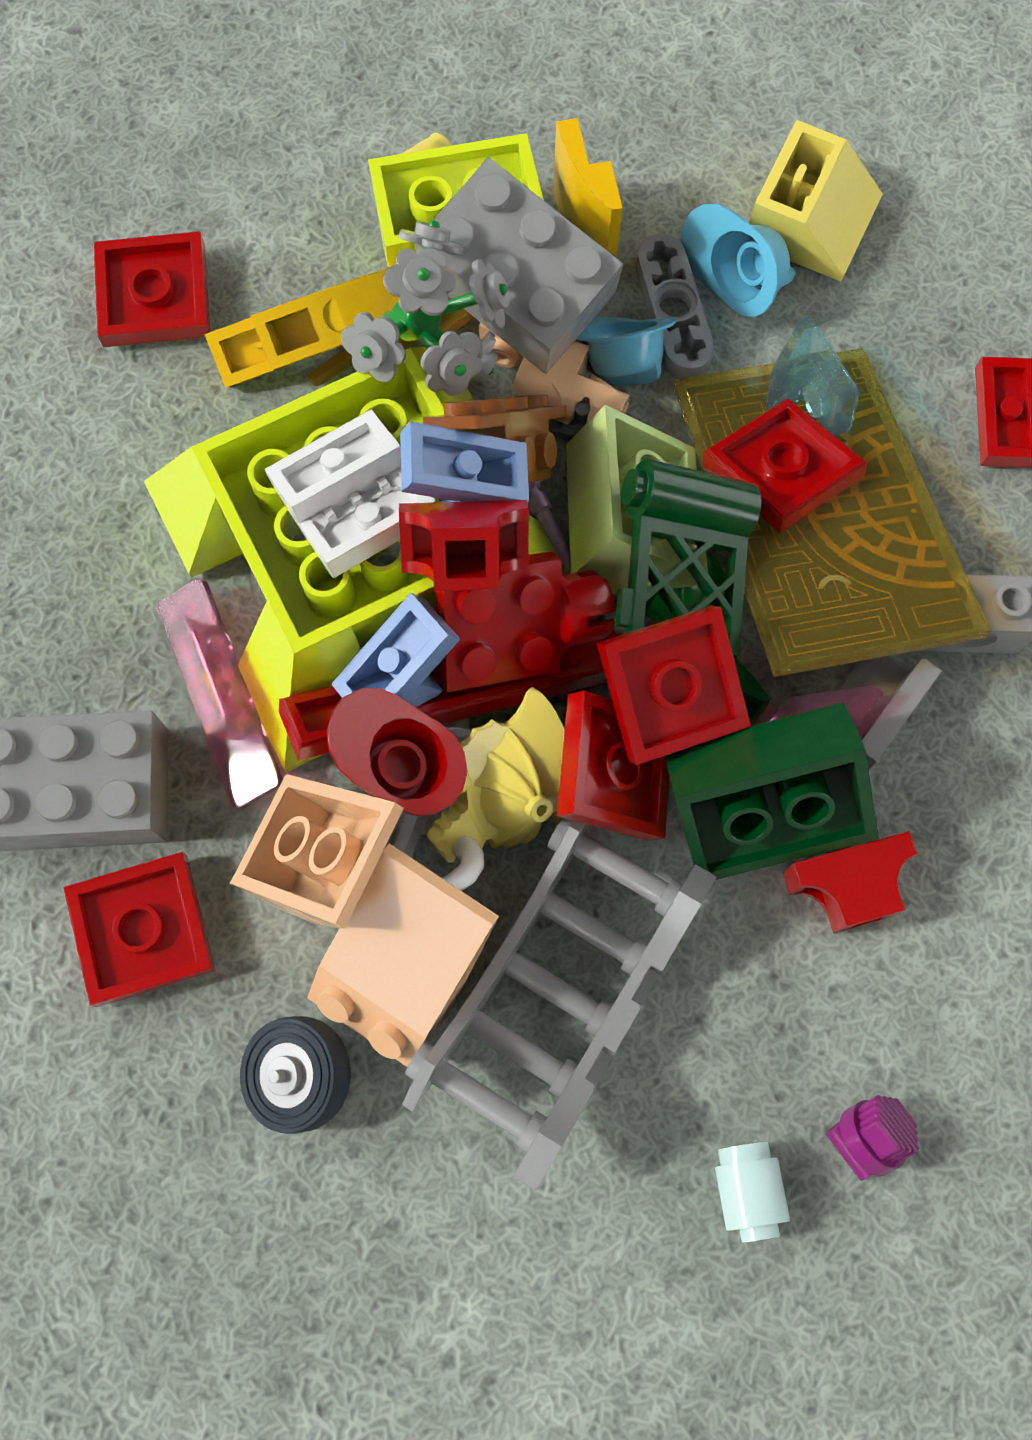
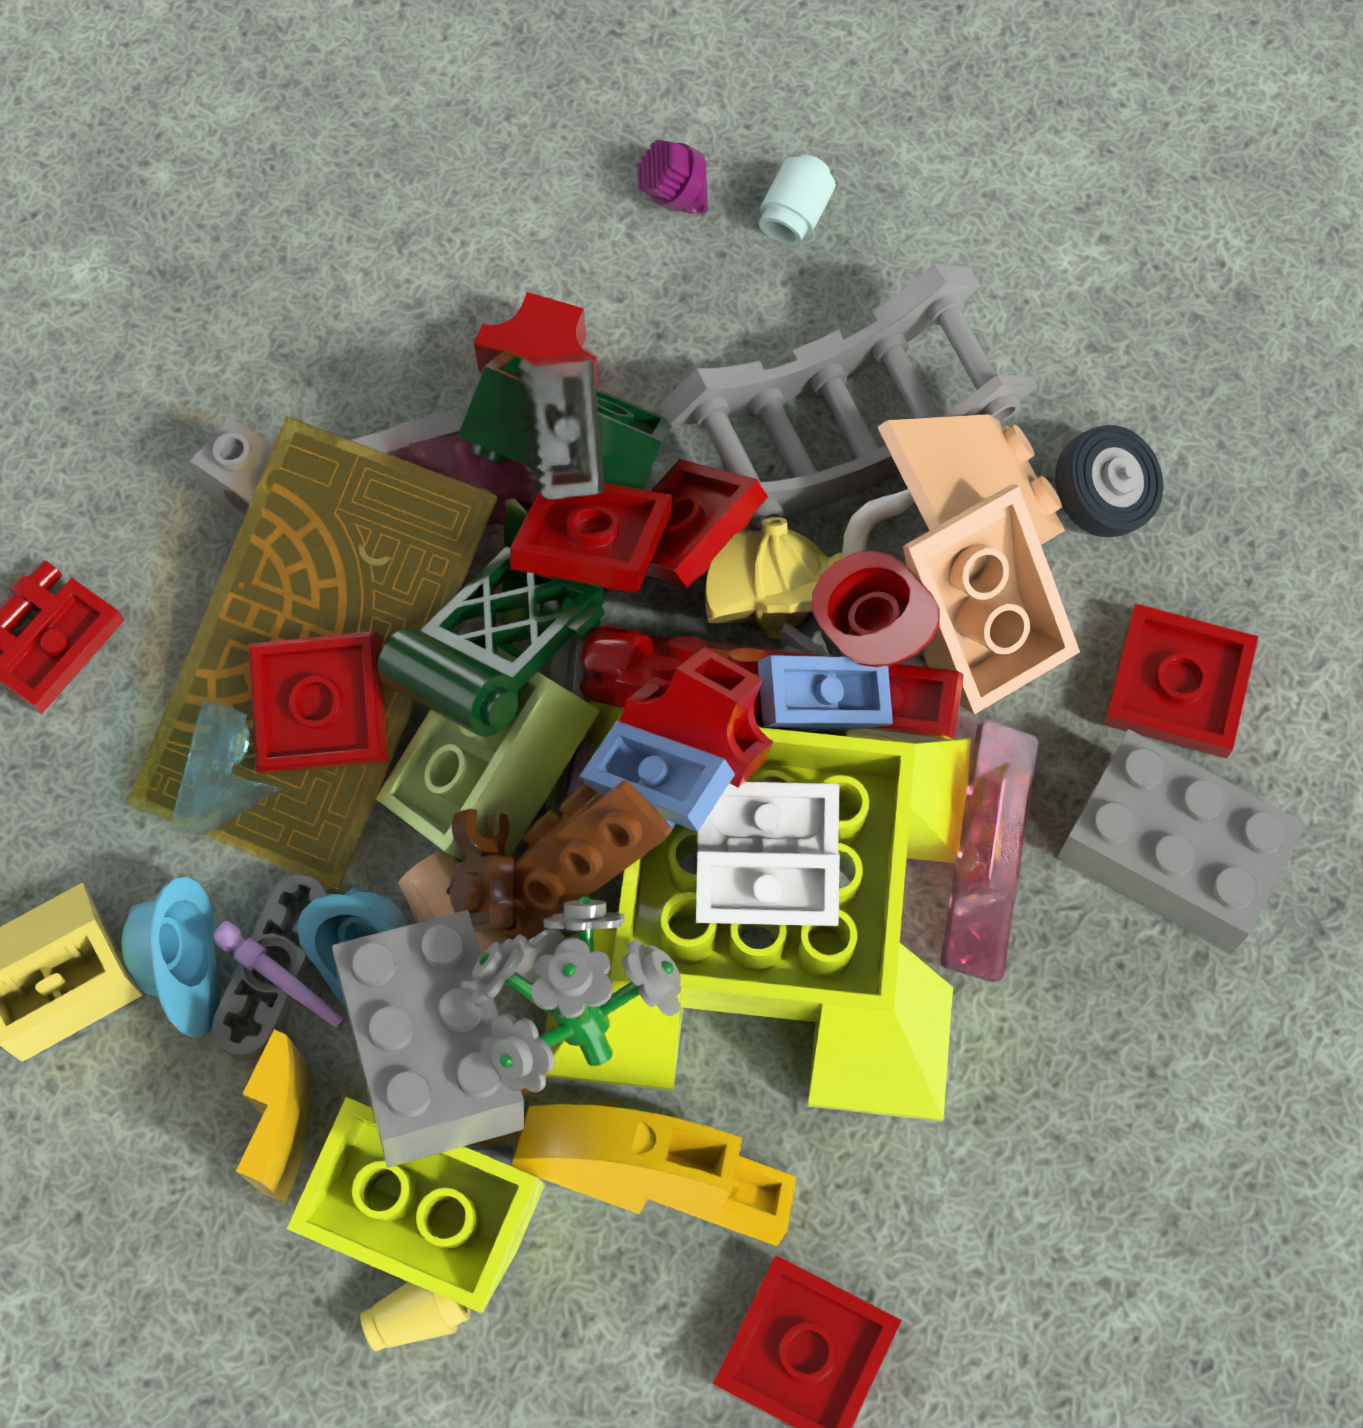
camera: 145 degrees left, 5 degrees down
(558, 393) = (487, 878): none -> reddish brown plate
(690, 290) = (254, 956): none -> lavender piece
(759, 724) = (562, 425): none -> clear smoke brick

